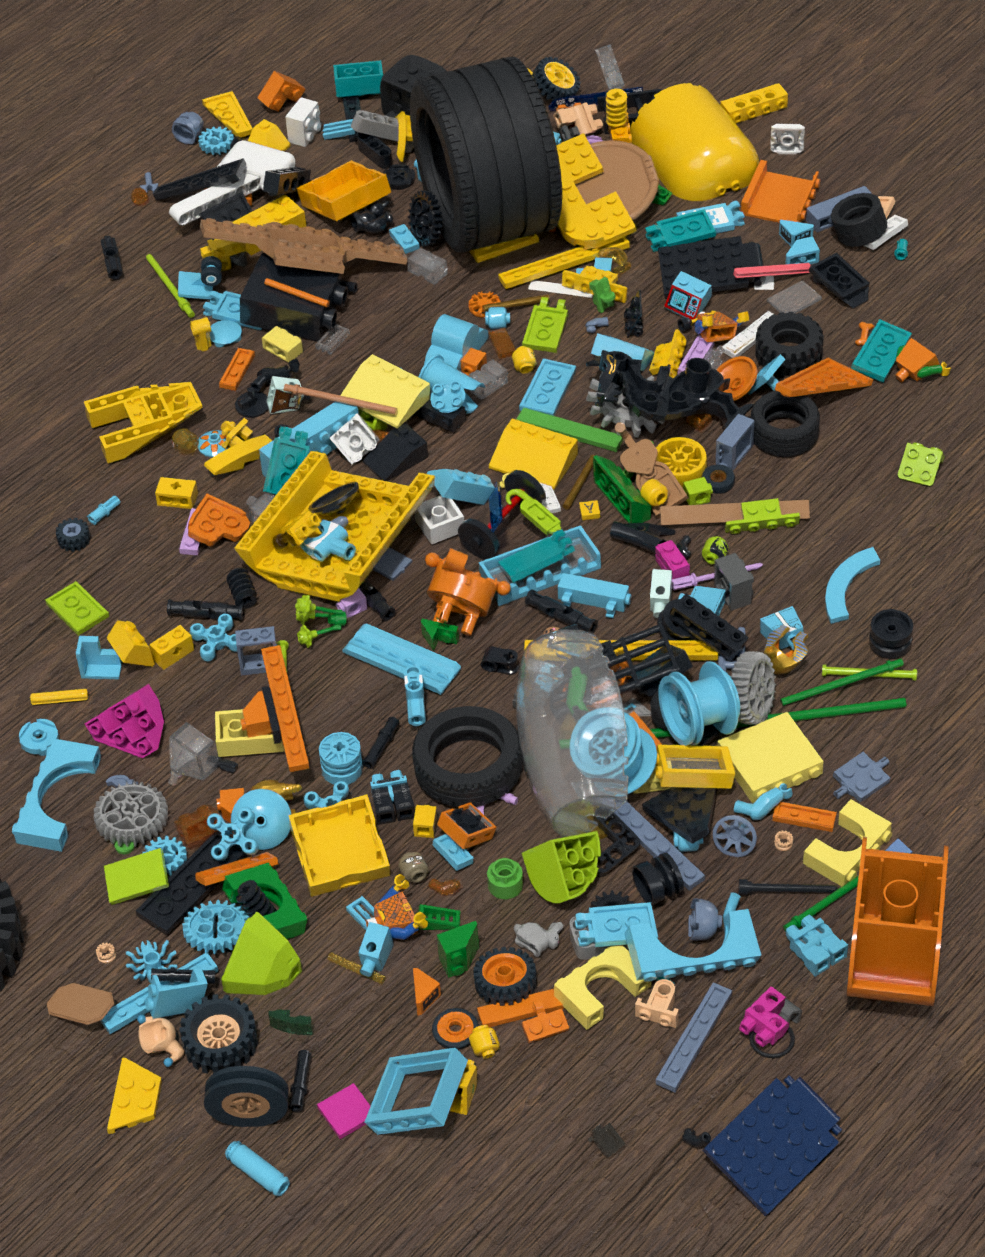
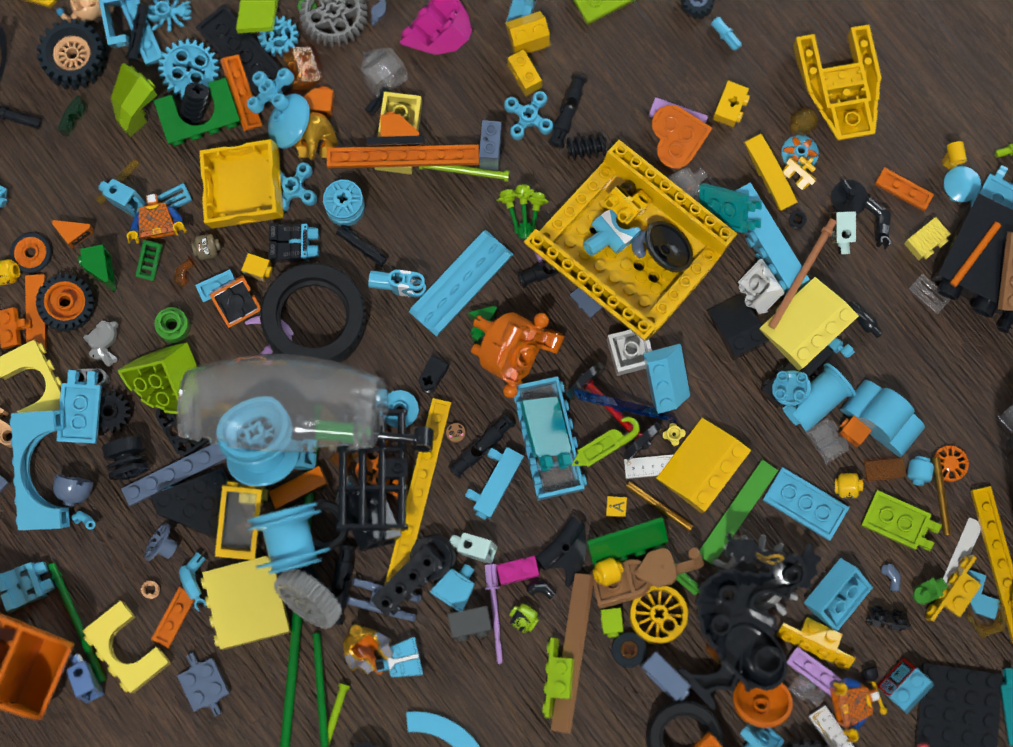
camera: 100 degrees right, 30 degrees up
(747, 887) = (104, 540): black piece -> none

